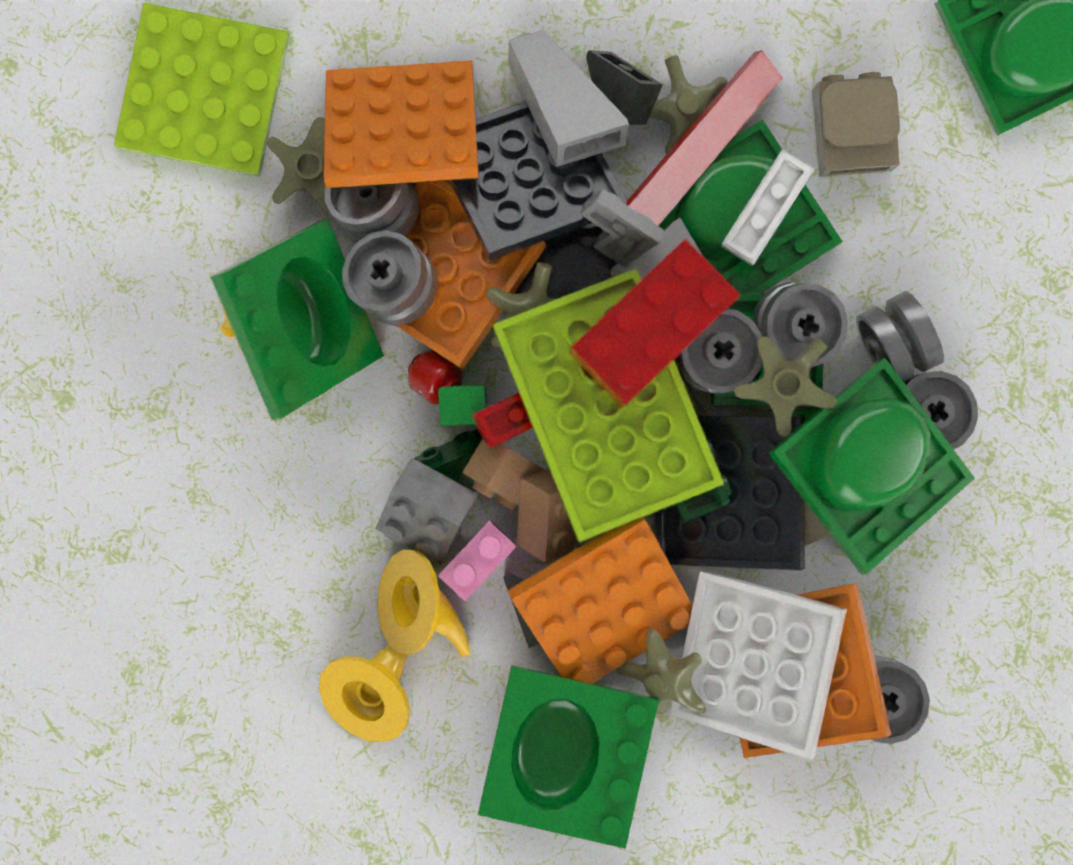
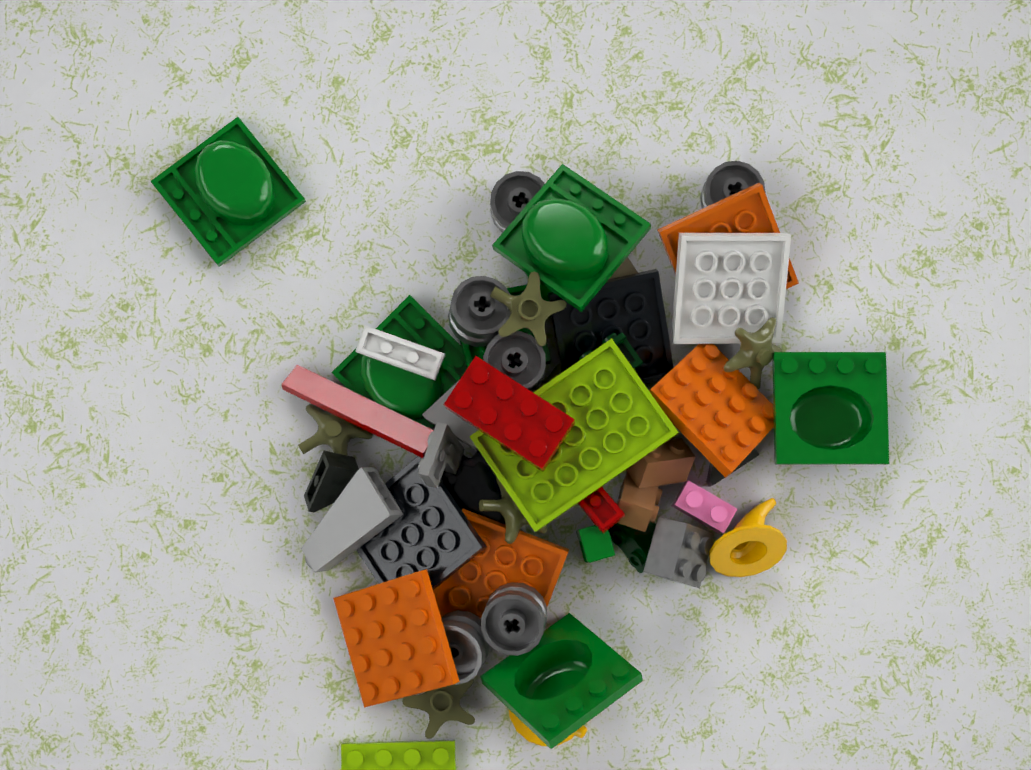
camera: 105 degrees left, 5 degrees down
(367, 695) = (822, 565): yellow piece -> none
(430, 372) = (577, 572): red head -> none
(856, 124) = (321, 303): dark tan brick -> none
(901, 336) = (471, 238): flat silver wheel -> none

